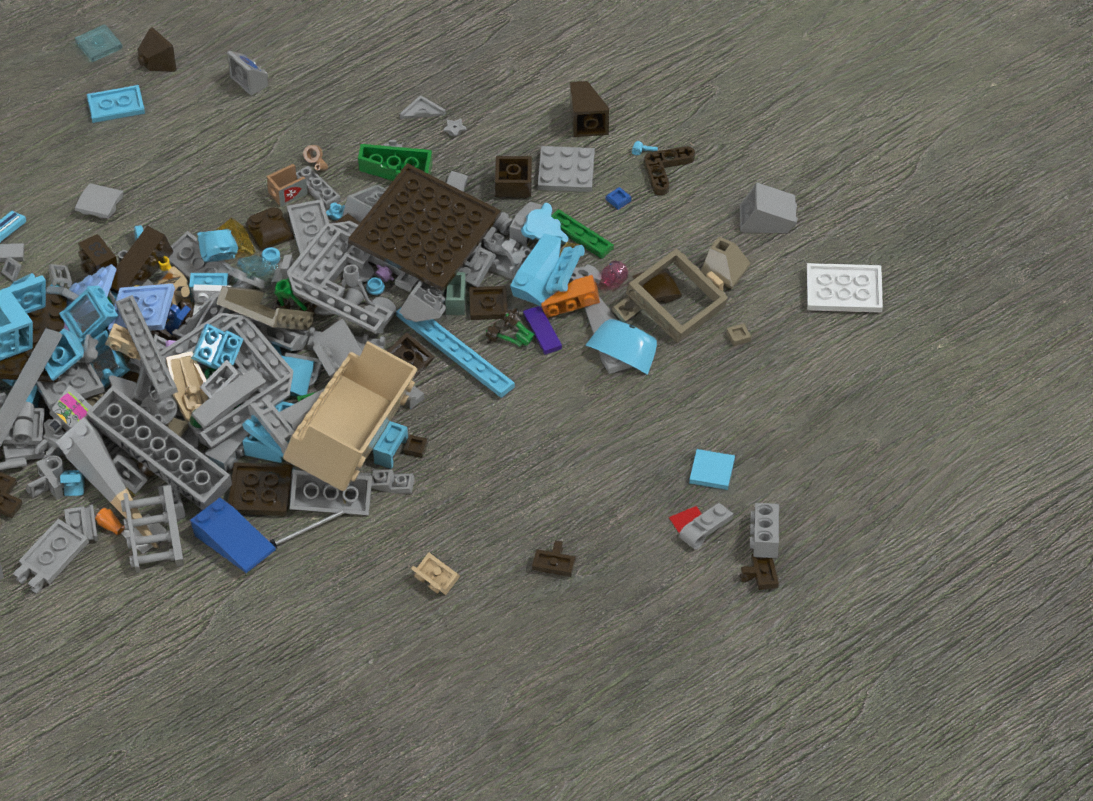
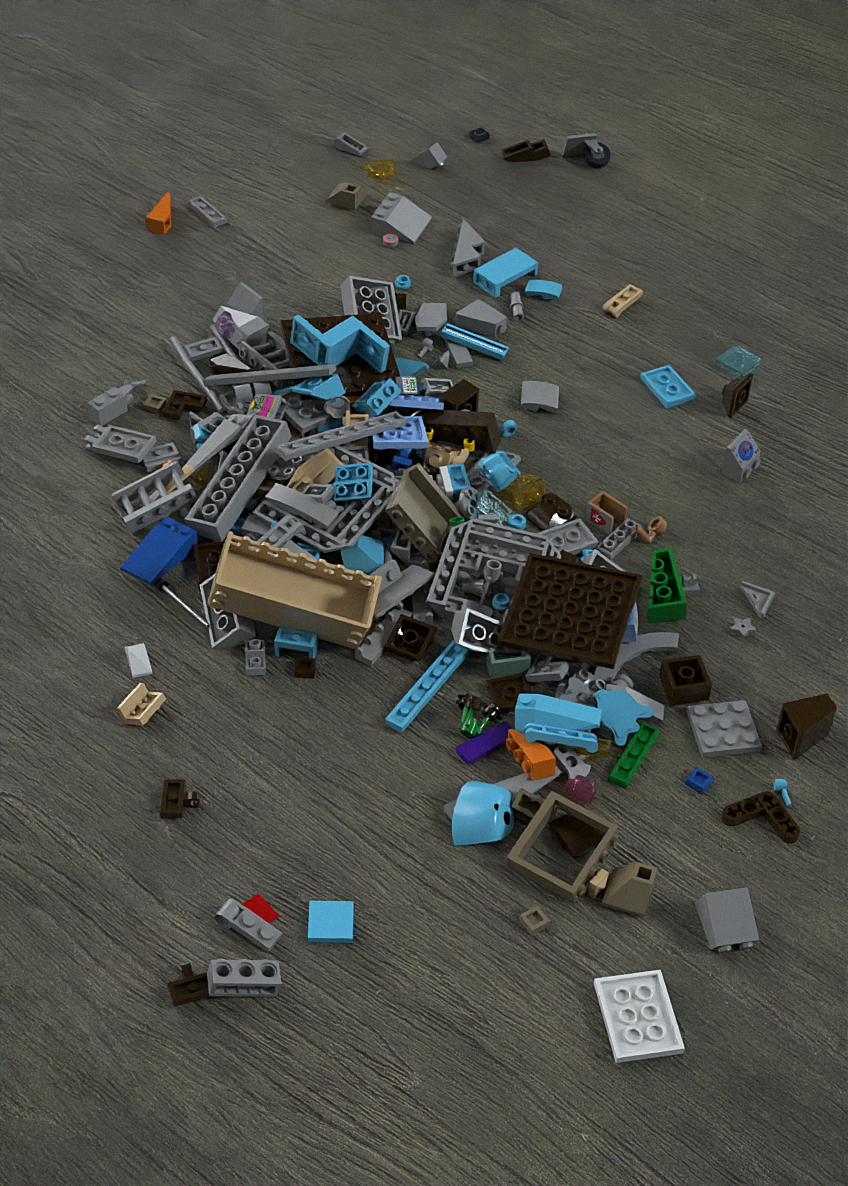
camera: 75 degrees right, 5 degrees down
(367, 576) = (138, 660): none -> white slope

